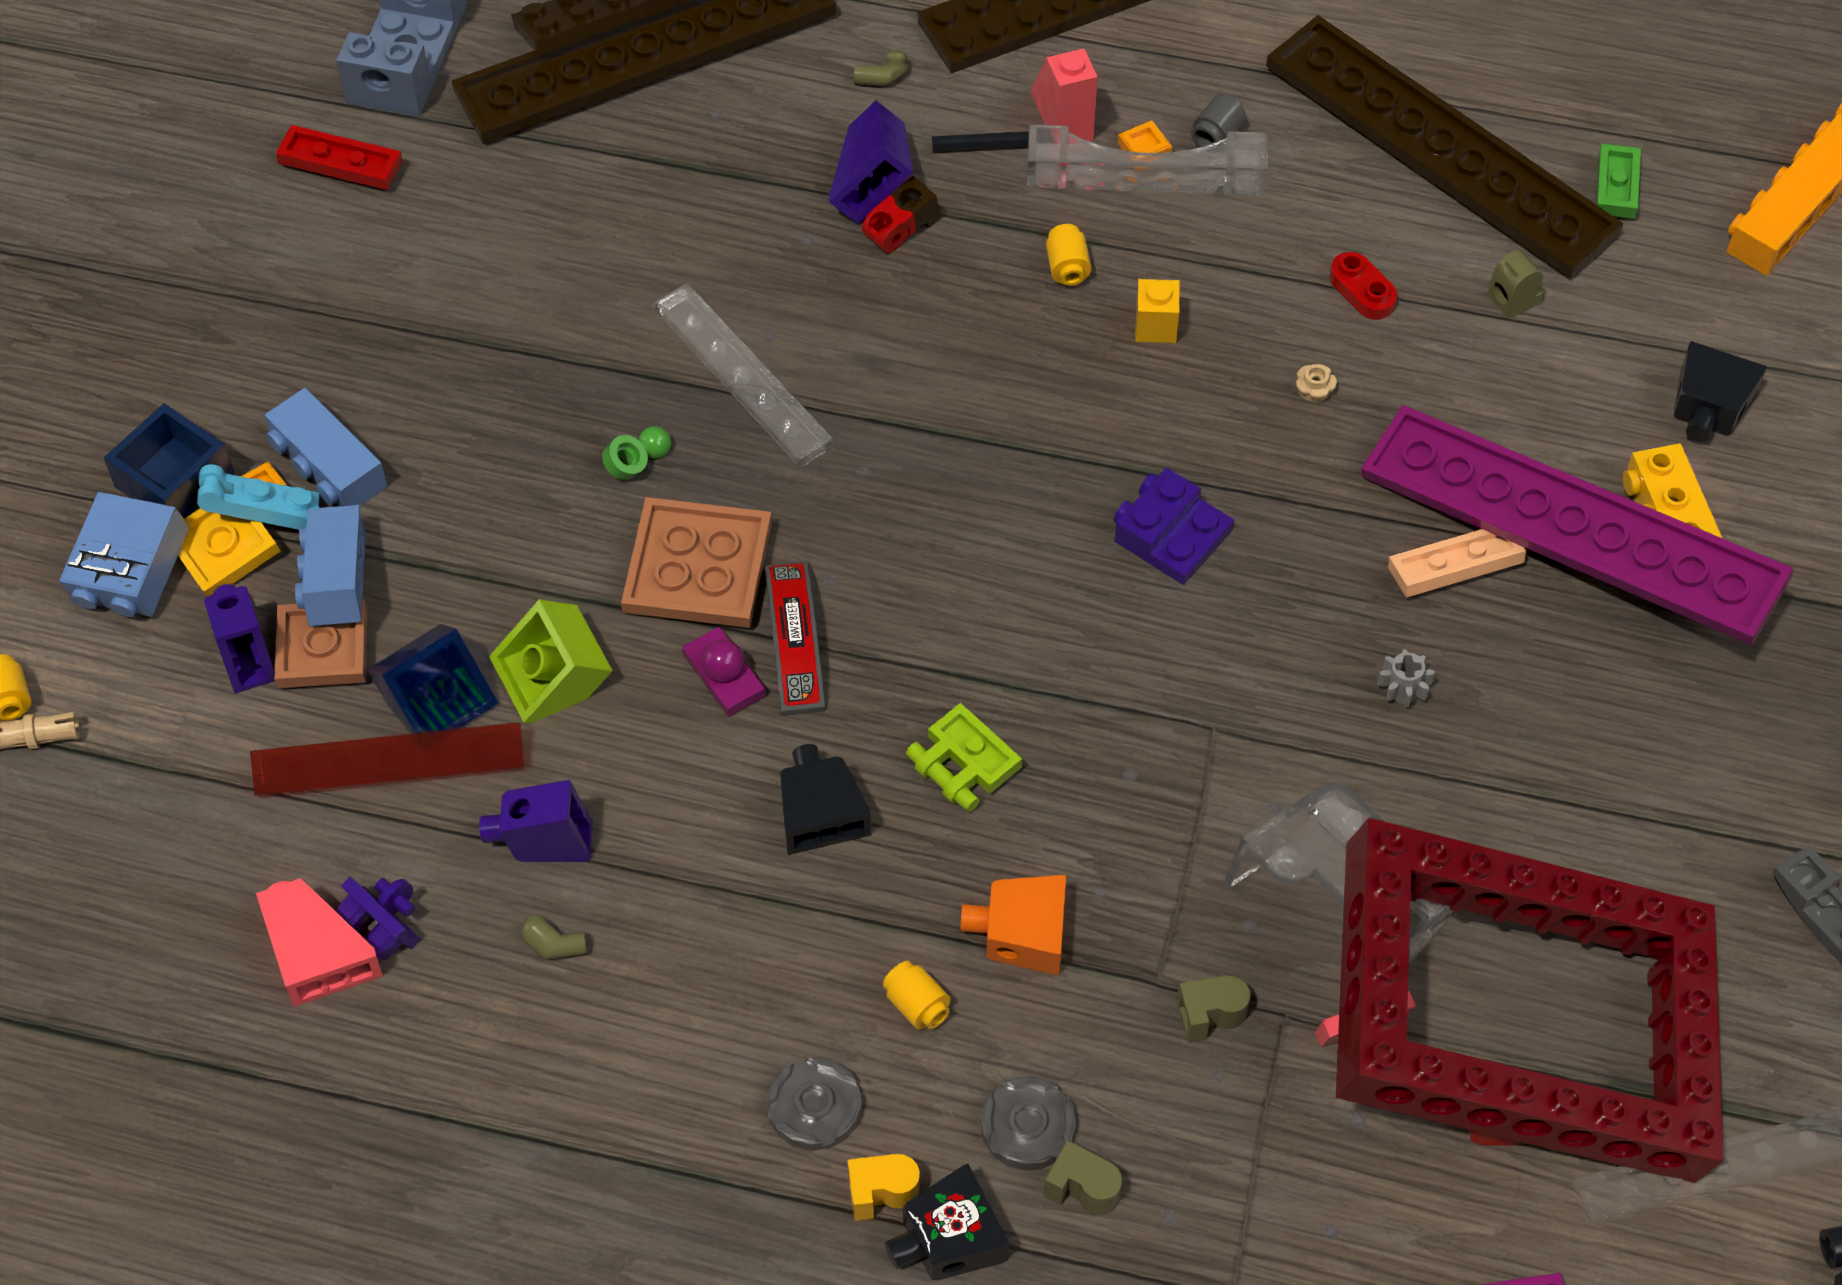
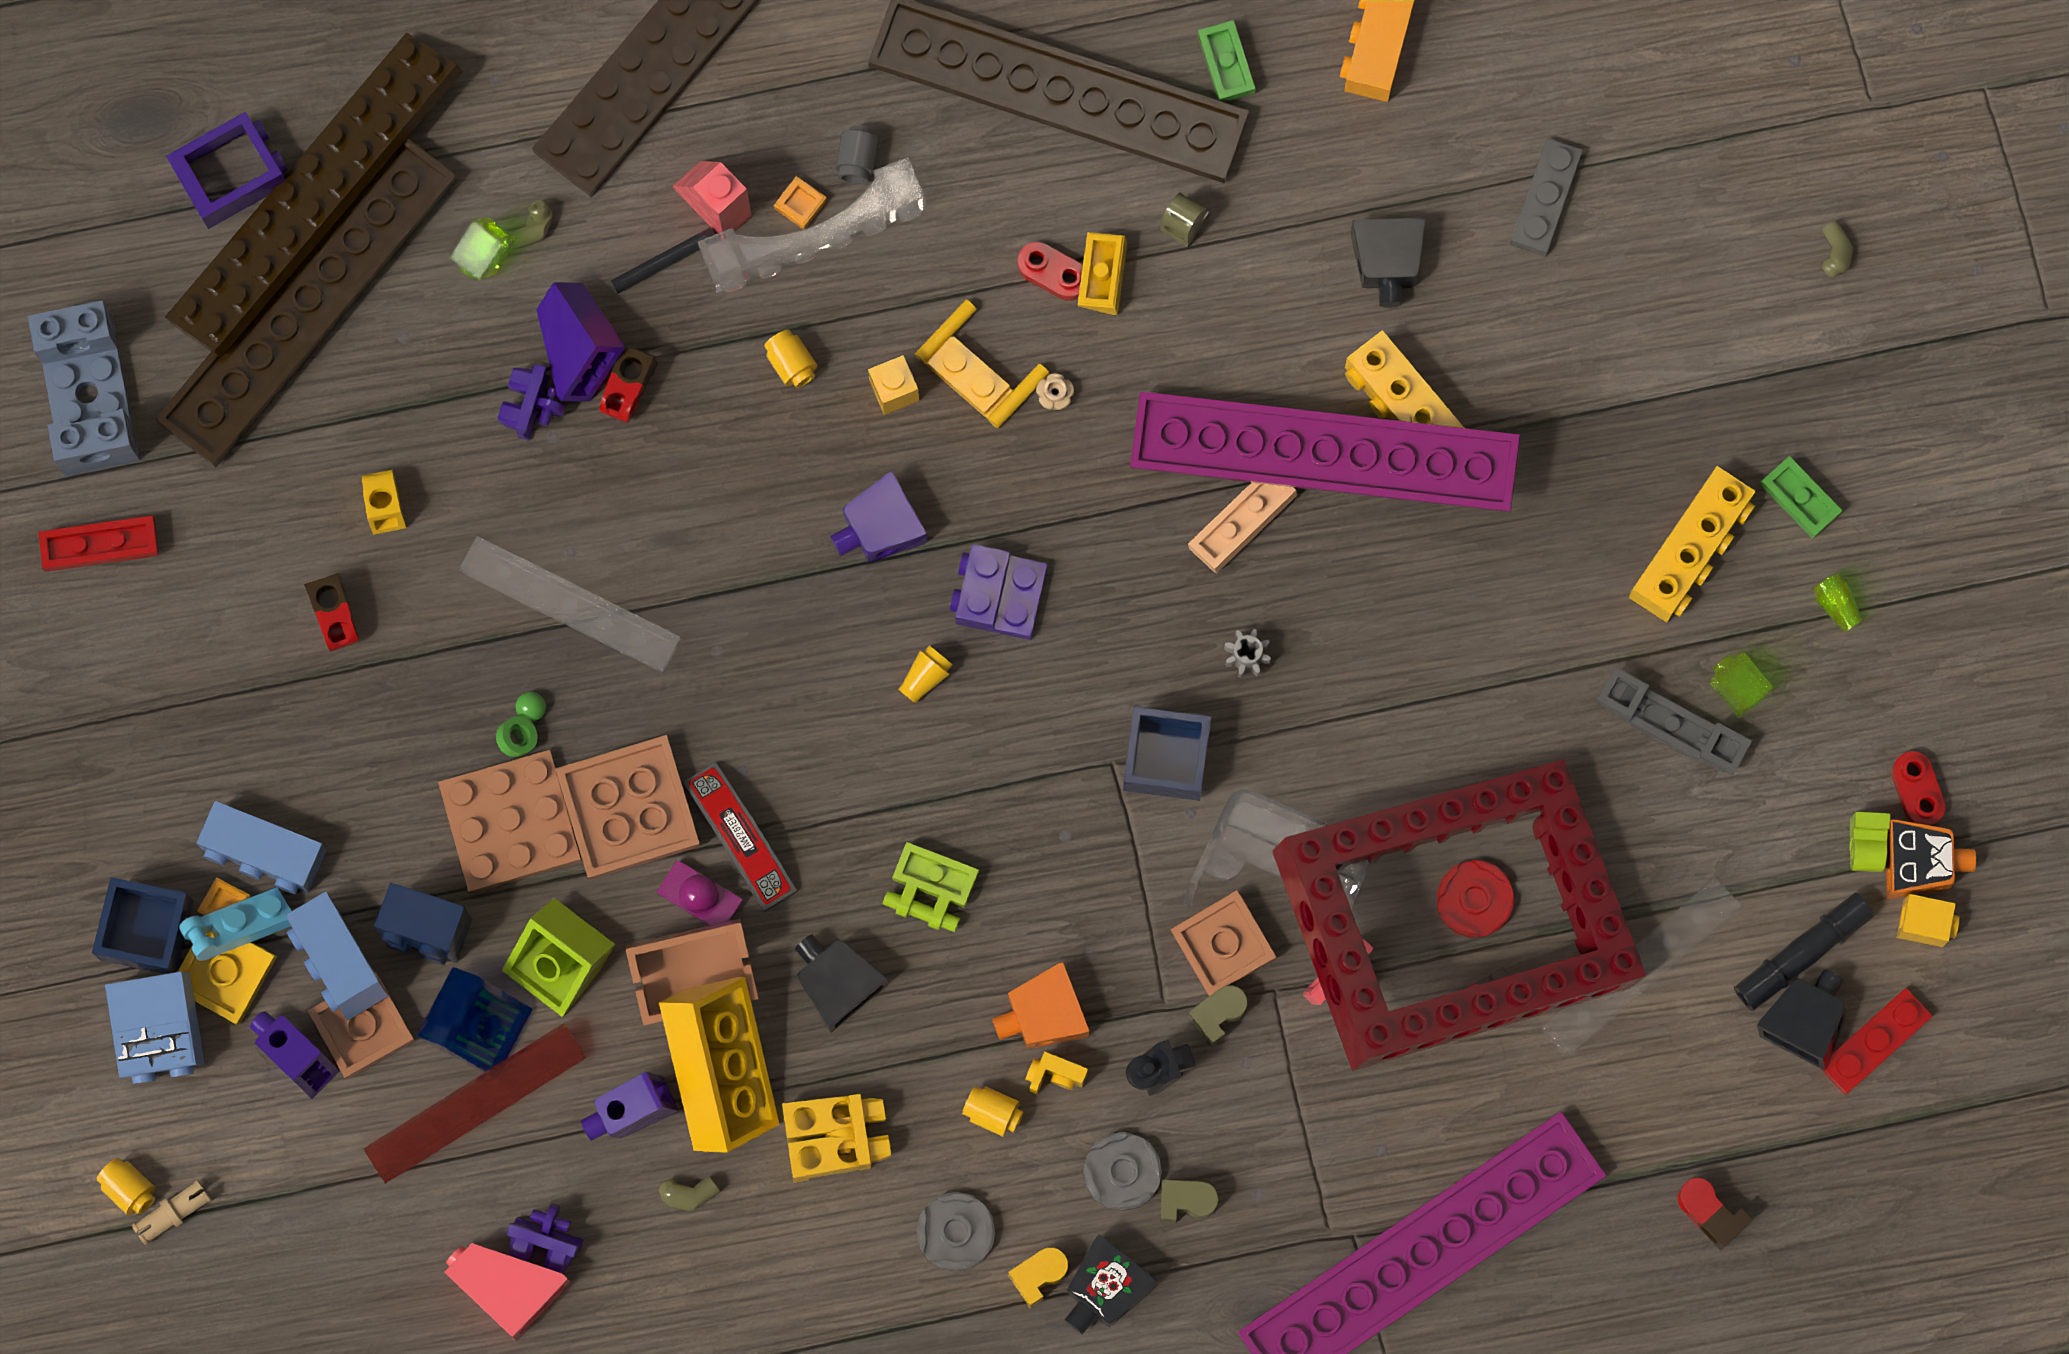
camera: 25 degrees left, 20 degrees up
(434, 569) = (423, 923): none -> dark blue piece
(515, 287) = (332, 611): none -> leg
(573, 531) = (509, 822): none -> nougat plate
(615, 223) = (382, 502): none -> yellow leg
(651, 815) = (719, 1065): none -> yellow slope
(673, 722) = (687, 961): none -> nougat piece
(733, 946) = (844, 1129): none -> yellow hips
(803, 201) = (523, 417): none -> dark purple hips
(826, 63) = (483, 249): none -> clear neon green brick
(1010, 985) = (1063, 1072): none -> yellow bracket
(1060, 565) = (925, 674): none -> yellow cone
(1083, 419) = (880, 522): none -> torso
(1121, 1025) = (1159, 1067): none -> black hips
(1240, 340) = (970, 375): none -> yellow plate
(1252, 939) = (1224, 943): none -> nougat plate
(1275, 729) = (1166, 753): none -> piece
(1413, 301) = (1102, 272): none -> yellow slope
(1552, 1017) = (1475, 899): none -> red tile

